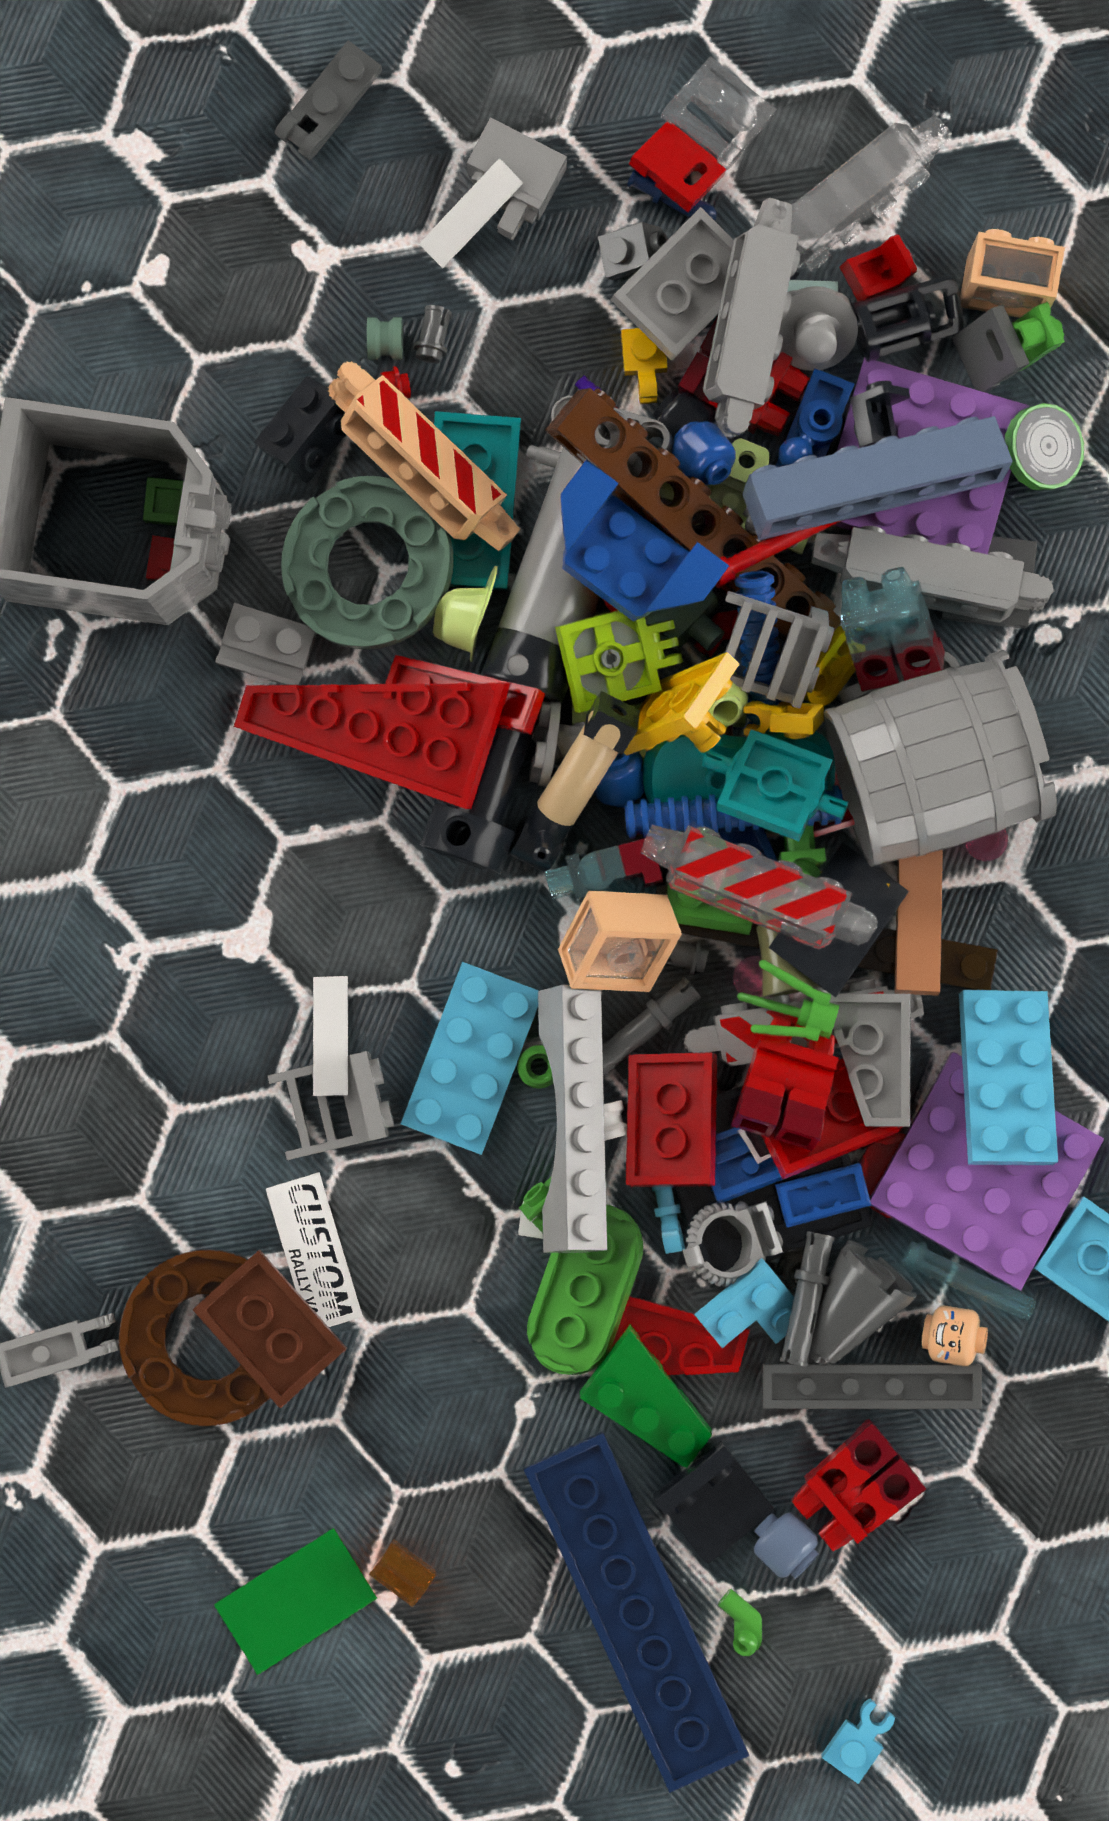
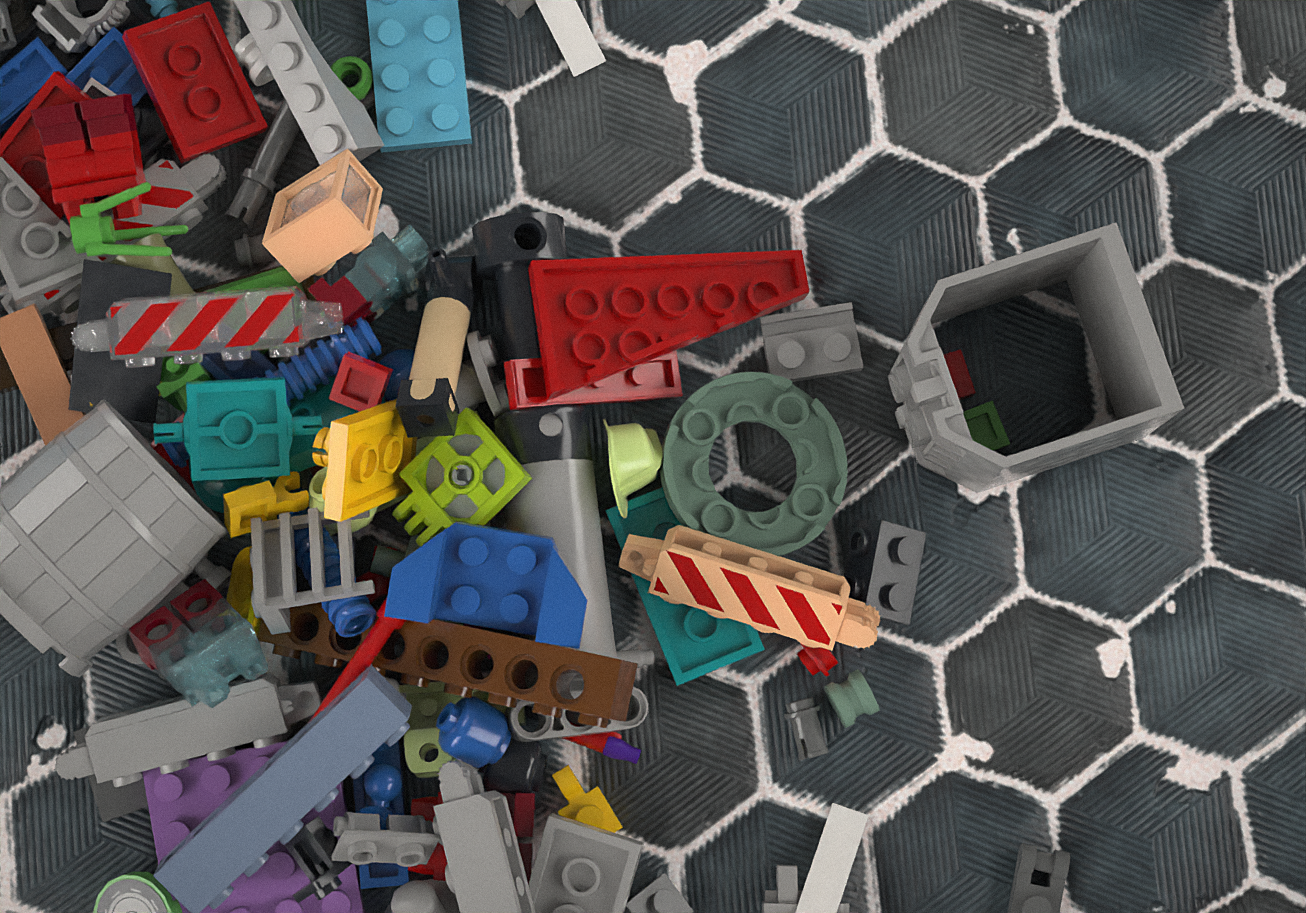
camera: 155 degrees right, 5 degrees down
(656, 776) = (360, 382): none -> red plate
(748, 976) = (189, 257): clear pink plate -> none
(832, 405) = (405, 842): none -> light grey hinge

